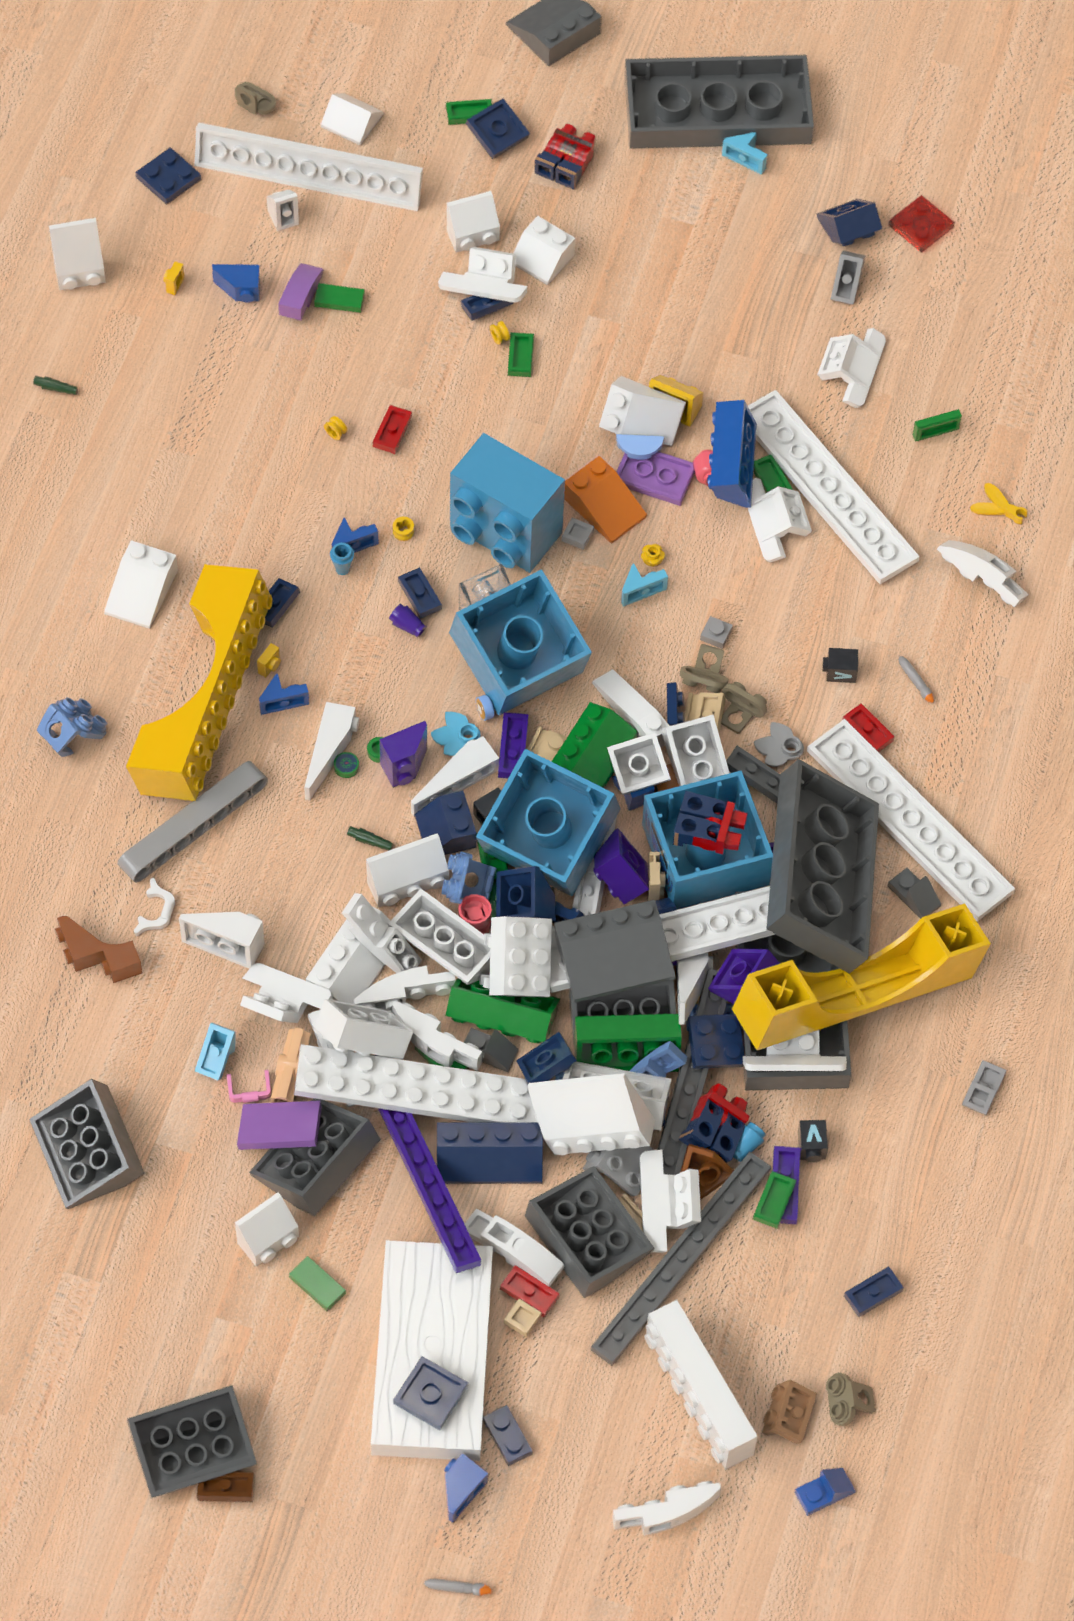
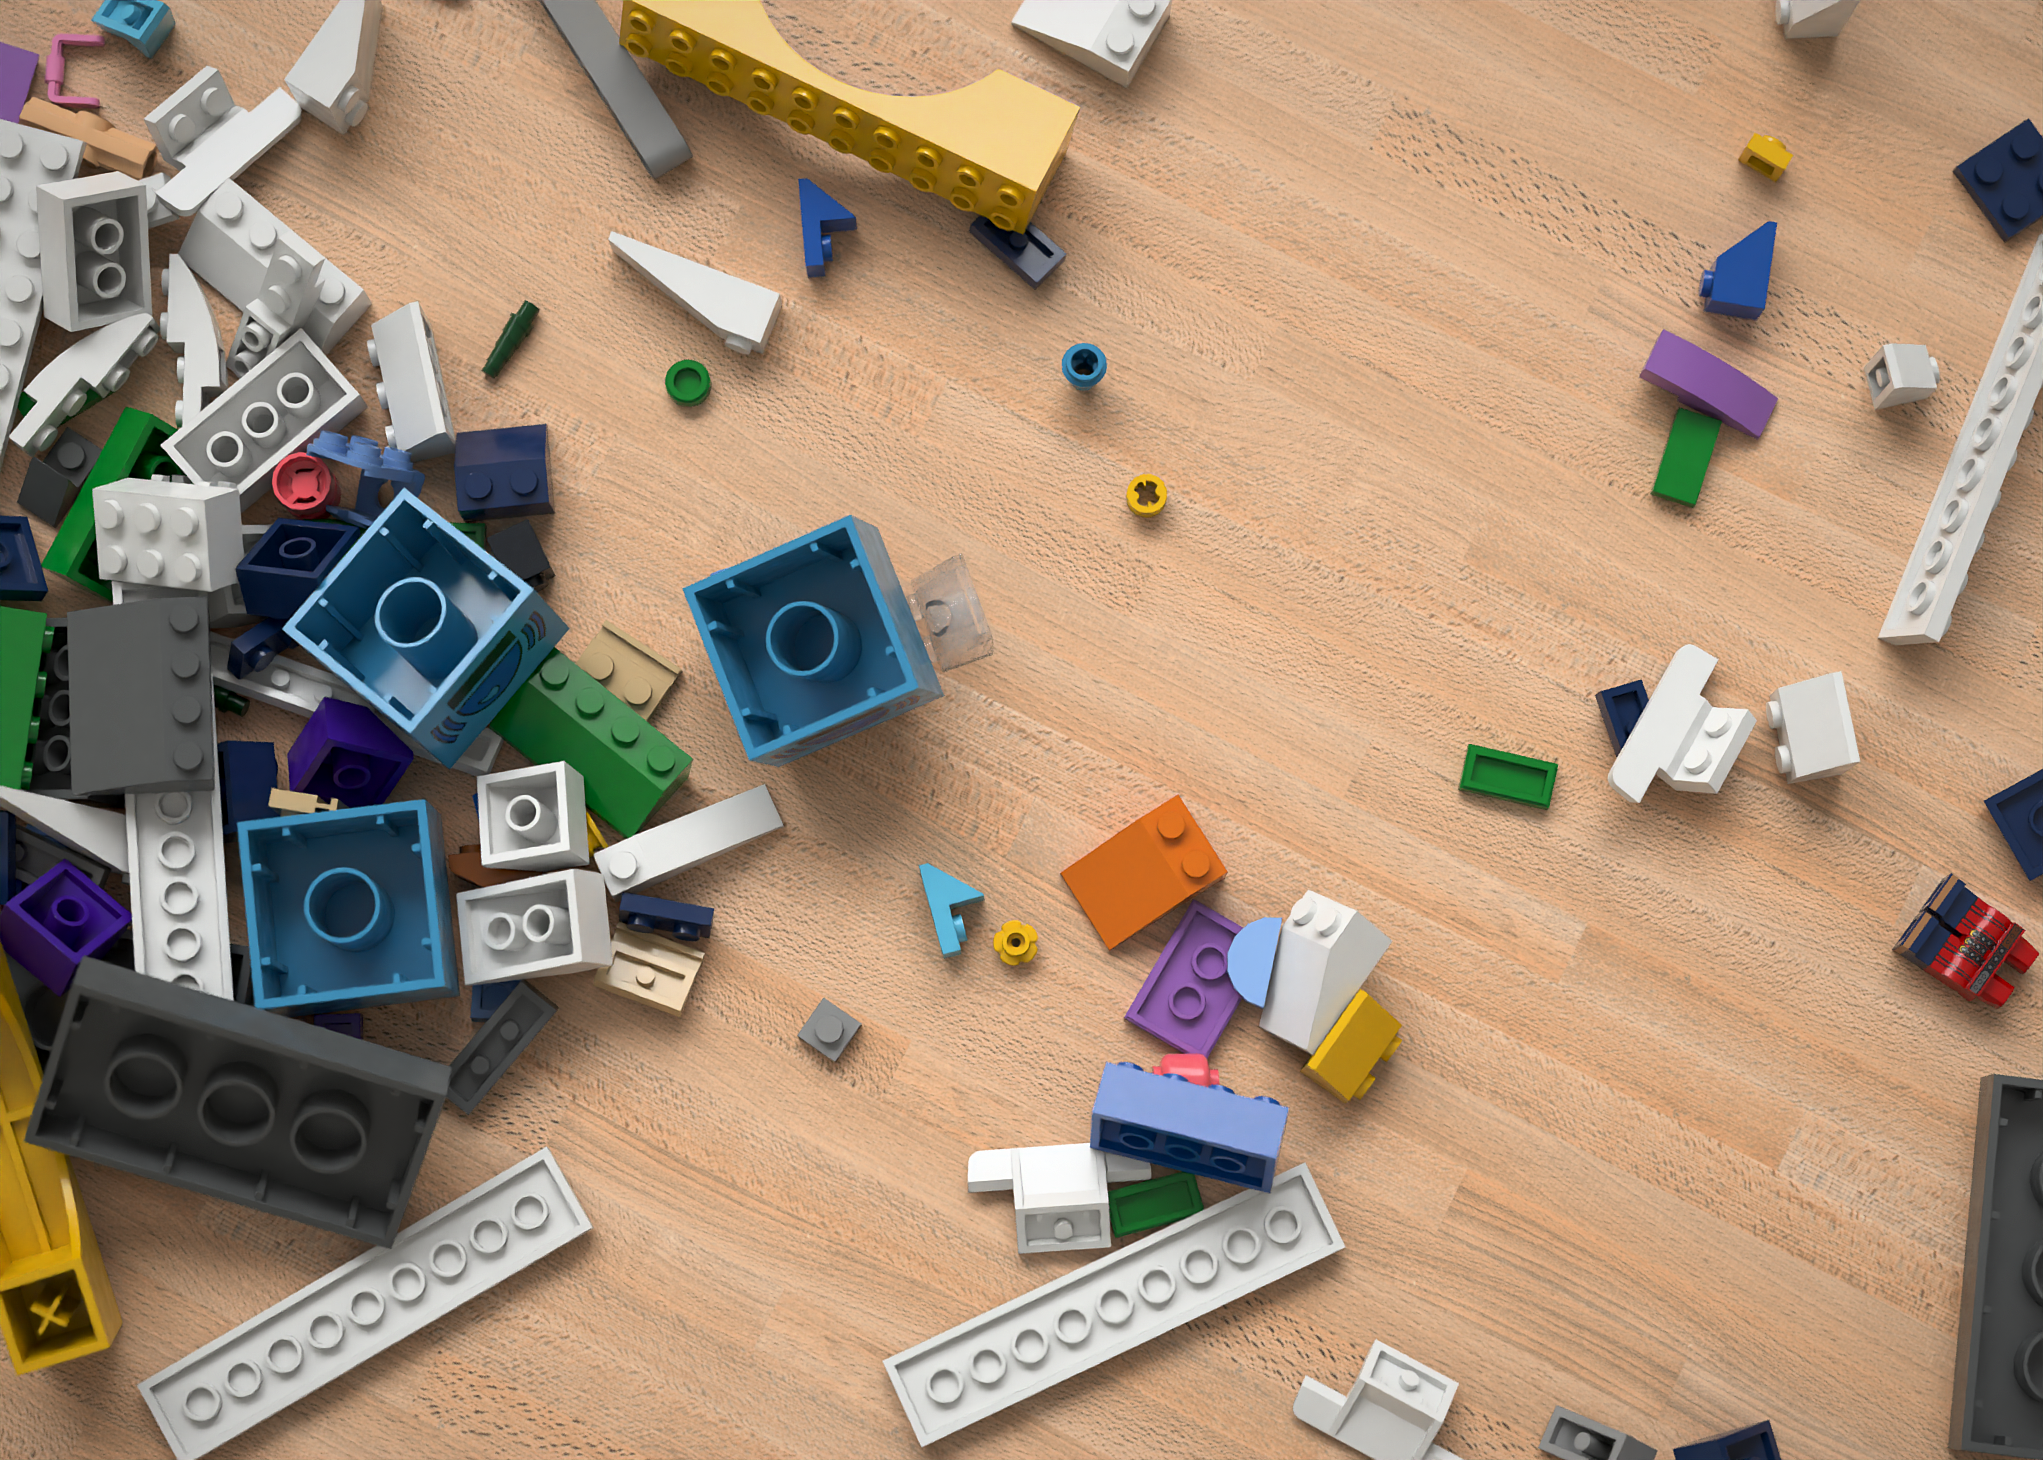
camera: 100 degrees right, 20 degrees up
(269, 660) = (896, 214): yellow plate -> none
(335, 428) = (1383, 404): yellow bush -> none
(346, 765) = (665, 320): tile -> none
(359, 539) = (1128, 386): blue slope -> none
(392, 429) = (1366, 507): red plate -> none
(403, 753) = (642, 410): dark purple slope -> none
(406, 620) = (941, 470): dark purple cone -> none
(419, 593) = (998, 501): dark blue plate -> none
(453, 734) = (696, 515): medium azure plate -> none
(464, 769) = (615, 524): white slope -> none
(499, 332) = (1558, 742): yellow bush -> none
(506, 504) = (1123, 665): dark azure brick -> none
(512, 742) = (637, 613): dark purple plate -> none
(544, 250) = (1738, 856): white slope -> none
(577, 533) = (1081, 810): light grey plate -> none
(703, 675) = (733, 988): dark tan bracket -> none
(707, 823) = (329, 895): hips -> none
(742, 151) = (1938, 1294): medium azure slope -> none
(743, 702) = (651, 1066): dark tan bracket -> none
(776, 745) = (570, 1091): light grey plate -> none
(841, 665) = (710, 1245): black brick -> none
(869, 727) = (569, 1269): red plate -> none
(915, 893) = (219, 1282): dark grey slope -> none
(925, 691) = (634, 1396): light grey piece -> none

